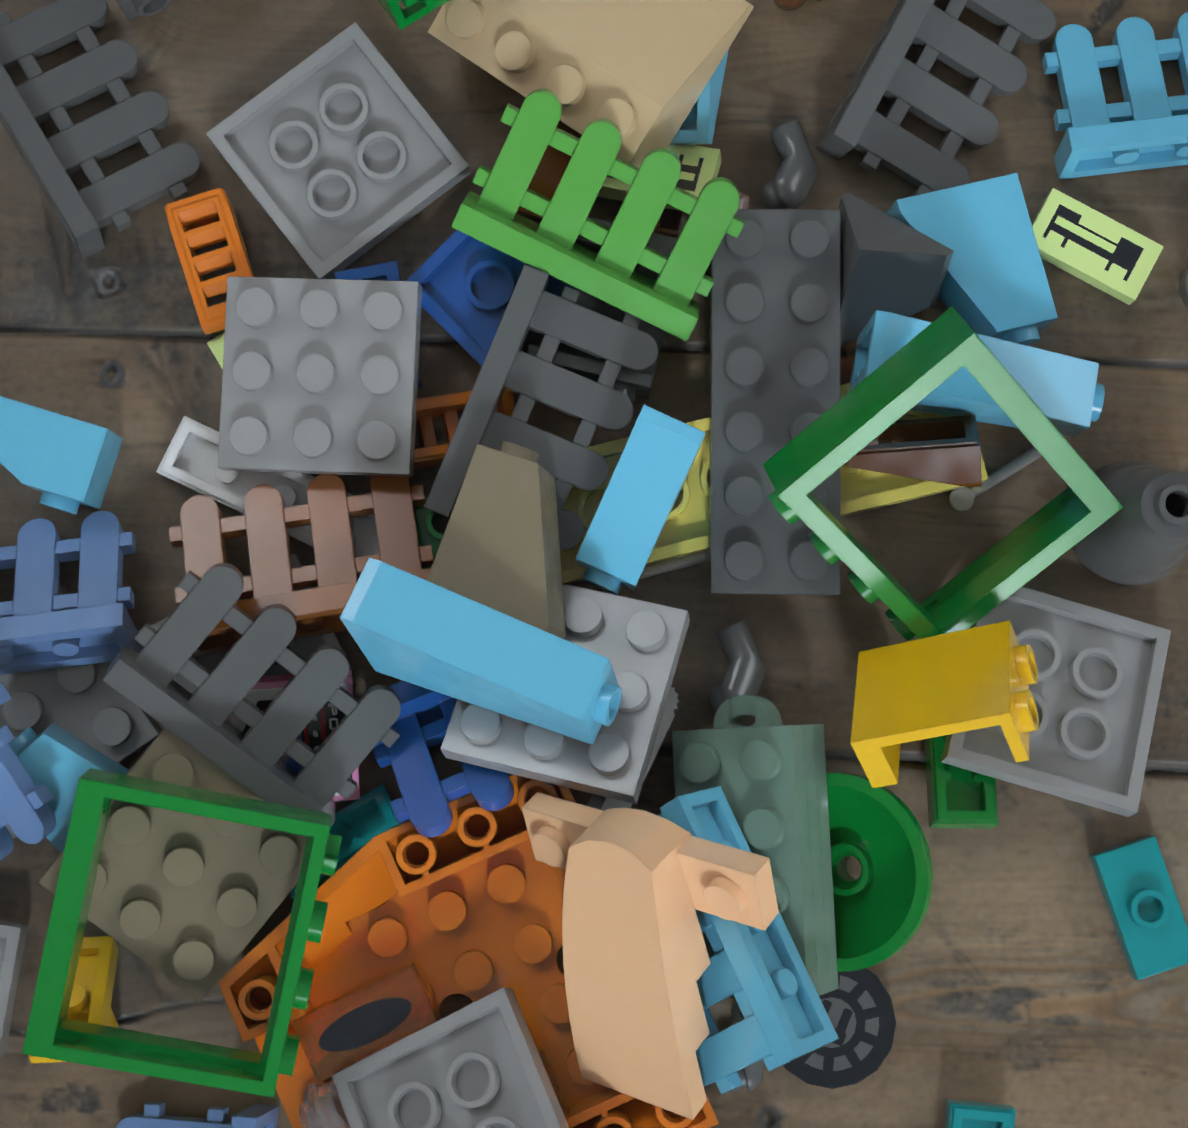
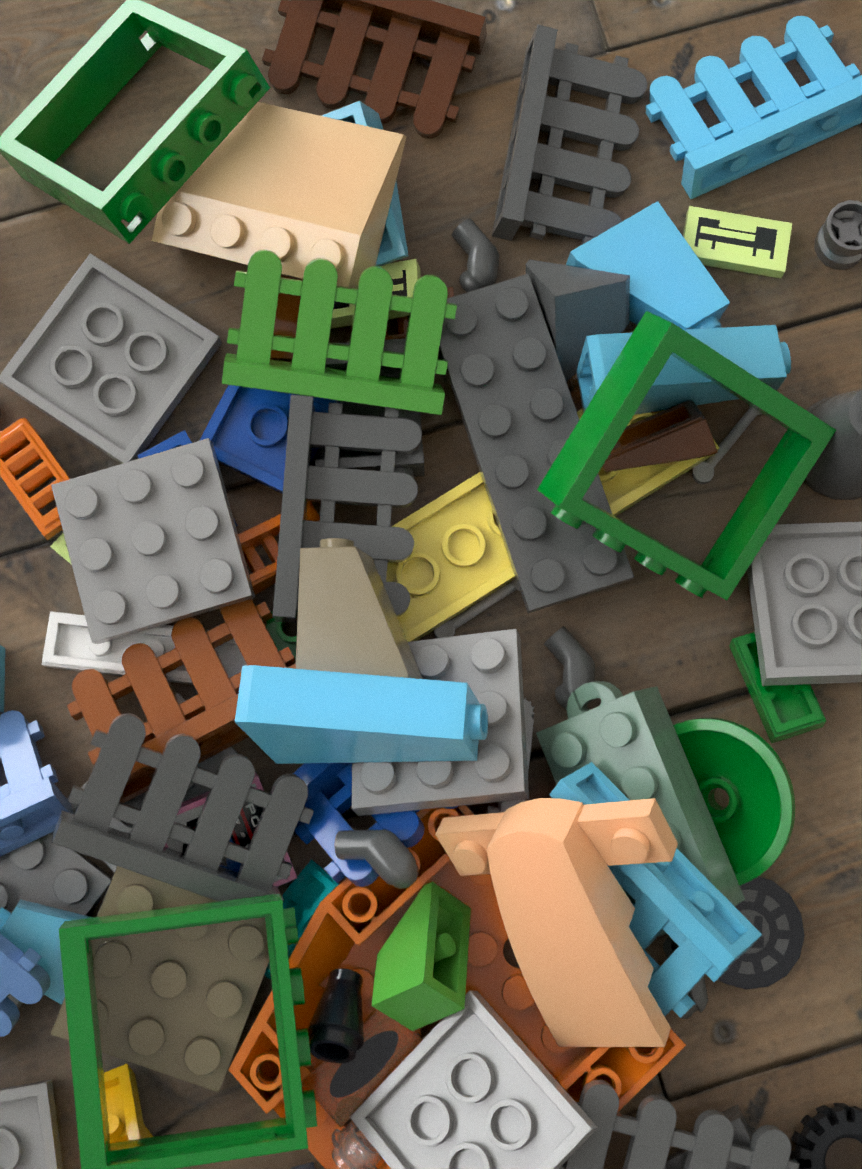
camera: 15 degrees left, 5 degrees down
(351, 971) = (338, 1020): none -> black cone
(457, 807) = (382, 851): none -> dark grey arm
(466, 938) = (424, 961): none -> bright green slope
(638, 500) = (445, 553): medium azure slope -> none
(942, 689) = (742, 624): yellow panel -> none

